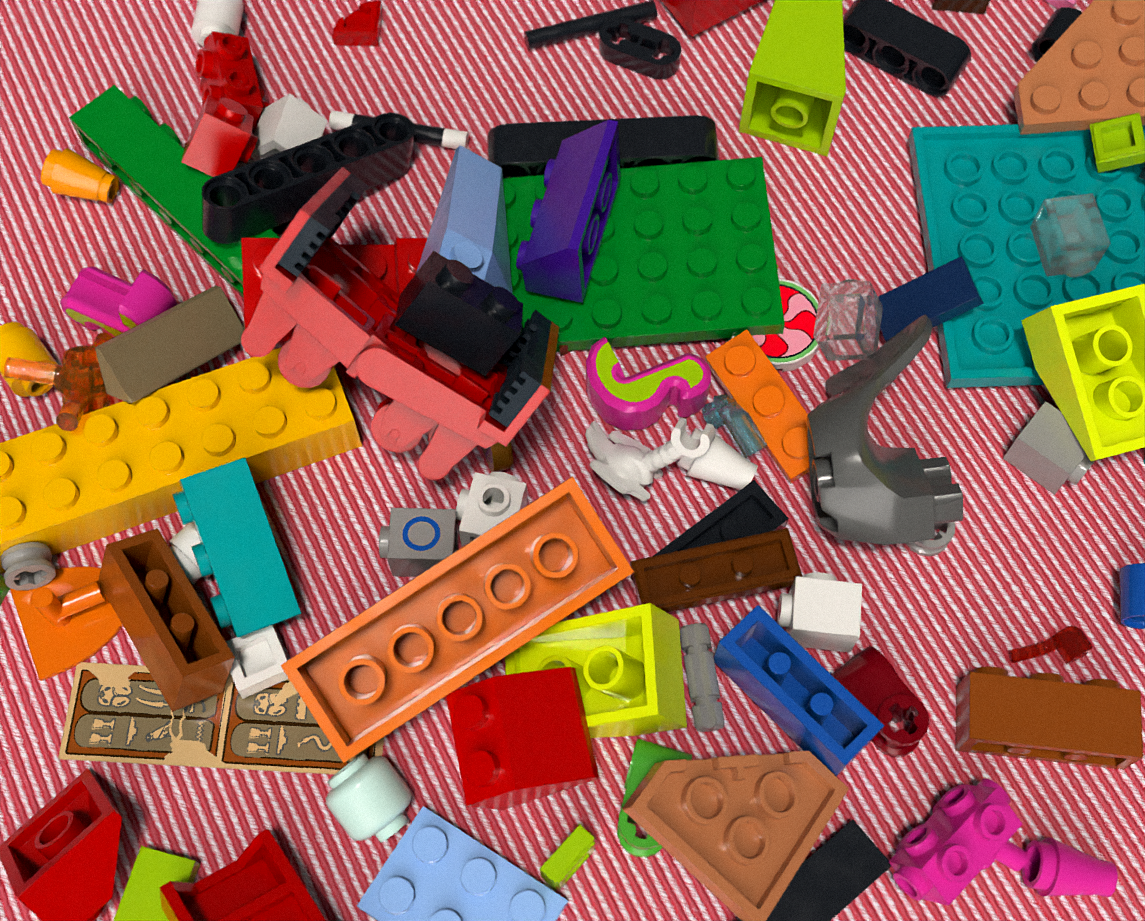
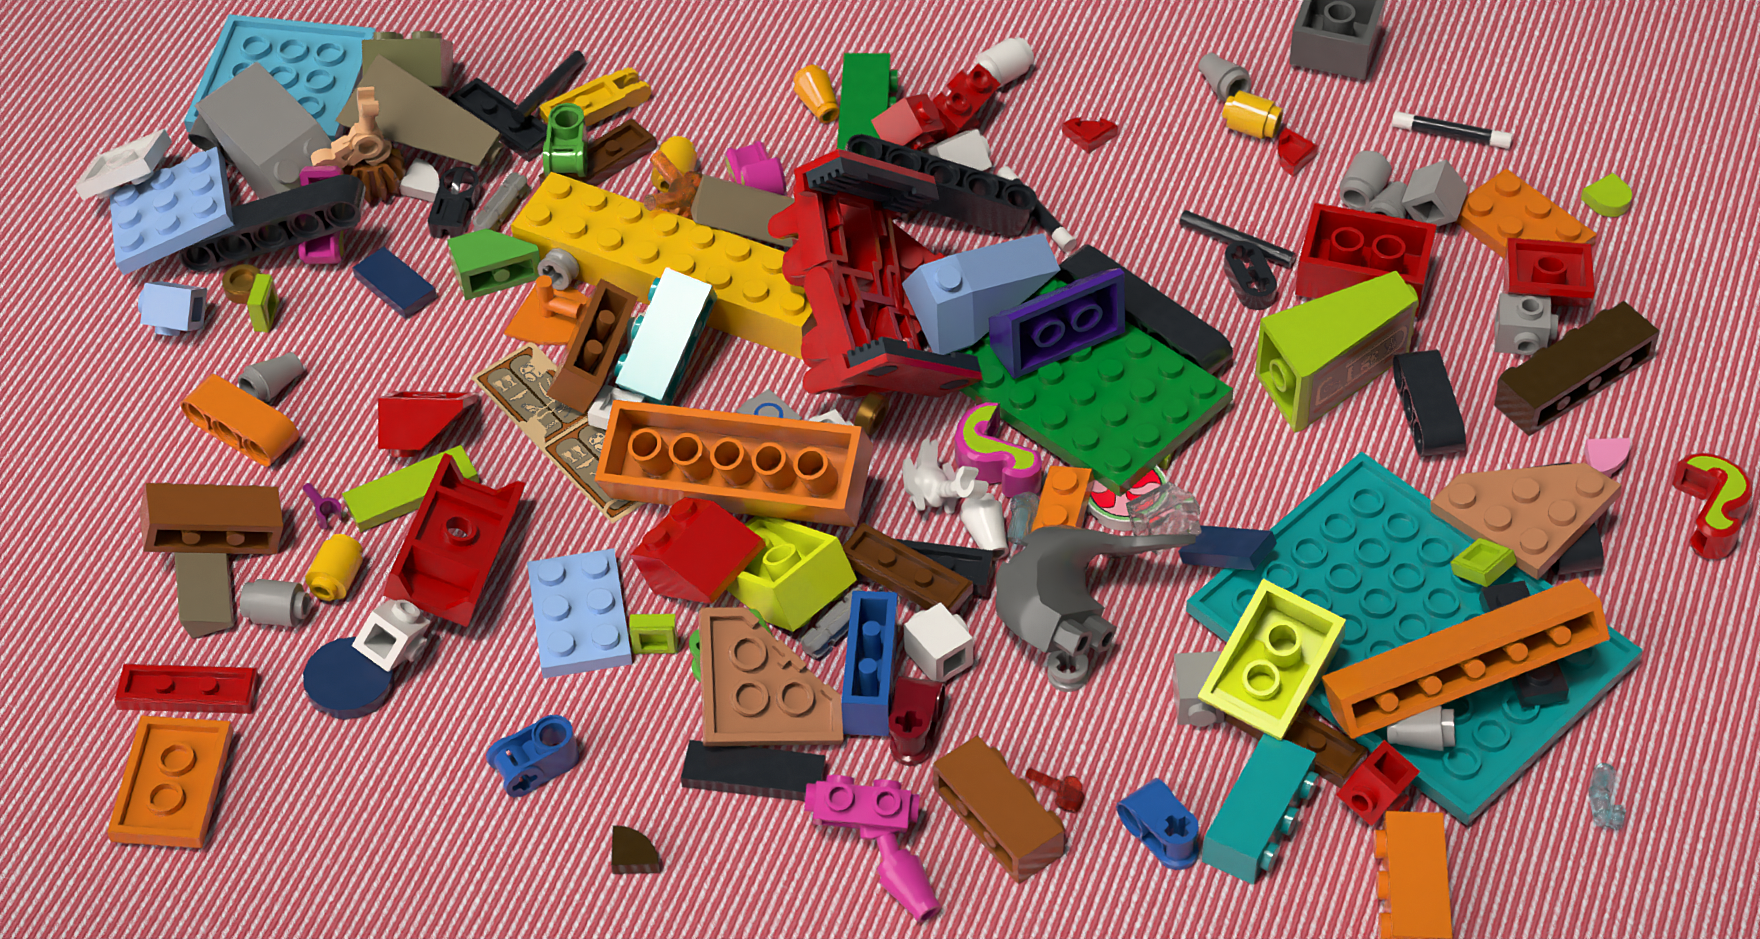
camera: 50 degrees right, 15 degrees down
(369, 798) = (591, 518): light aqua head -> none
(459, 313) = (909, 302): black brick -> none
(1070, 235) = (1365, 580): clear brick -> none

